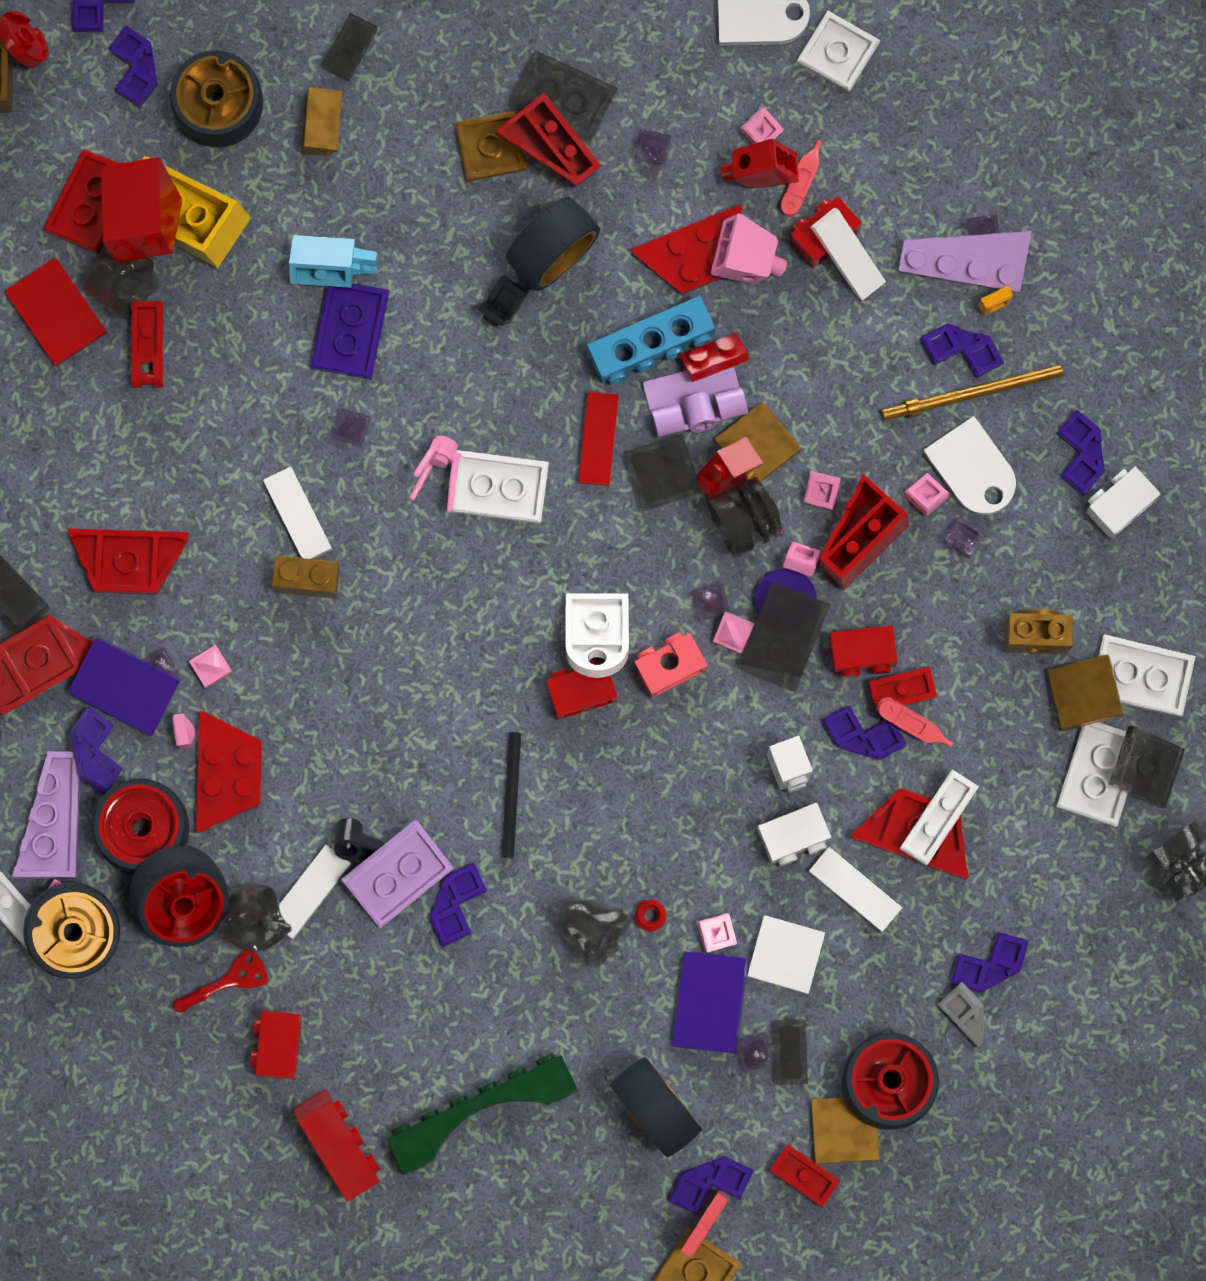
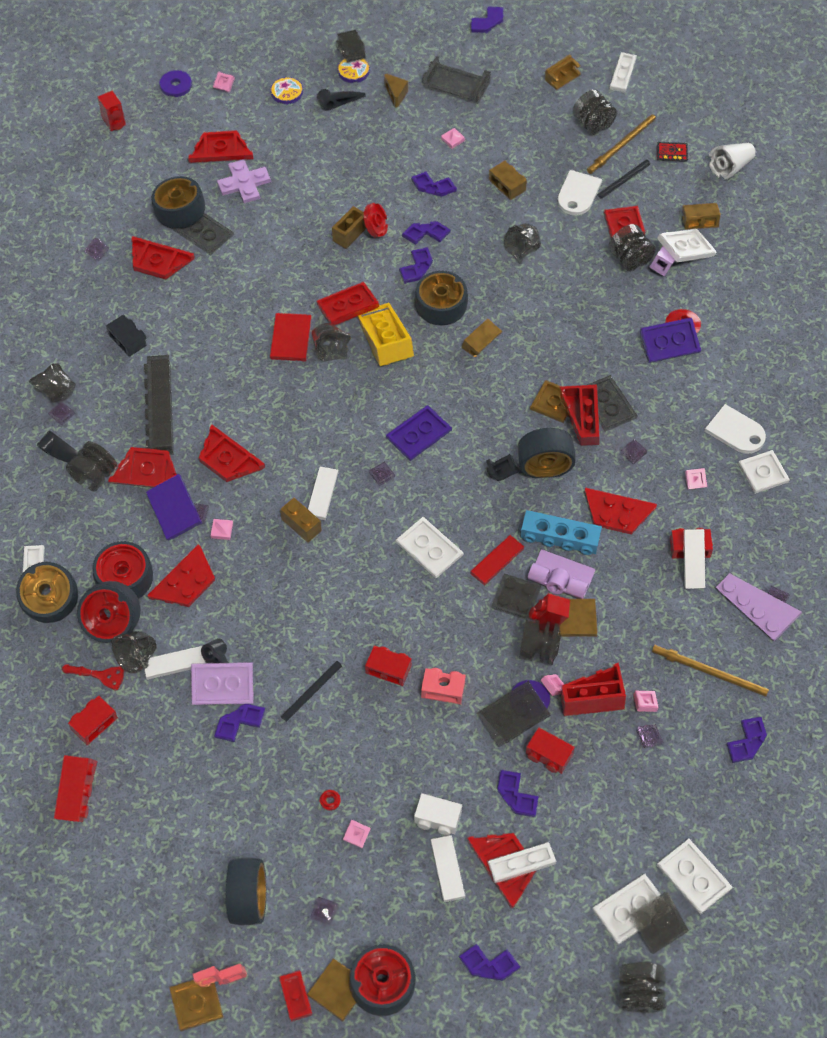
camera: 40 degrees right, 20 degrees down
(53, 825) = (82, 548): lavender wing -> none
(91, 763) = (135, 517): dark purple tile -> none
(139, 209) = (363, 310): red slope -> none
(147, 343) = (319, 375): red plate -> none
(183, 731) = (181, 546): bright pink tile -> none
(328, 261) = (432, 395): medium azure hinge -> none
(349, 47) = (522, 318): clear smoke plate -> none
(439, 454) = (414, 511): bright pink plant -> none
(543, 1084) = (117, 821): dark green arch -> none
(585, 925) = (291, 771): clear smoke piece -> none
(597, 628) = (420, 641): white tile -> none
(710, 602) = (490, 673): clear purple tile -> none
(710, 1002) = (322, 866): dark purple tile -> none
(714, 357) = (586, 561): red plate -> none
(720, 1173) = (253, 960): dark purple tile -> none
(733, 632) = (489, 693): bright pink tile -> none
(746, 252) = (642, 524): bright pink torso -> none
(762, 165) = (683, 491): red torso -> none
(786, 954) = (383, 873): white tile -> none
(790, 764) = (463, 775): white brick -> none
(790, 1052) = (343, 925): clear smoke plate -> none
(797, 191) = (697, 515): coral piece -> none
(821, 490) = (591, 660): bright pink tile -> none
(904, 688) = (555, 786): red plate -> none
(911, 721) = (546, 804): coral piece -> none
(952, 340) = (718, 638): dark purple tile -> none
(965, 1012) = (454, 978): light grey tile -> none
(971, 466) = (681, 704): white tile -> none
(995, 301) = (757, 634): light orange tile -> none
(1038, 632) = (651, 808): pearl gold brick -> none
(1085, 692) = (655, 859): pearl gold tile -> none
(1122, 502) = (751, 778): white brick -> none

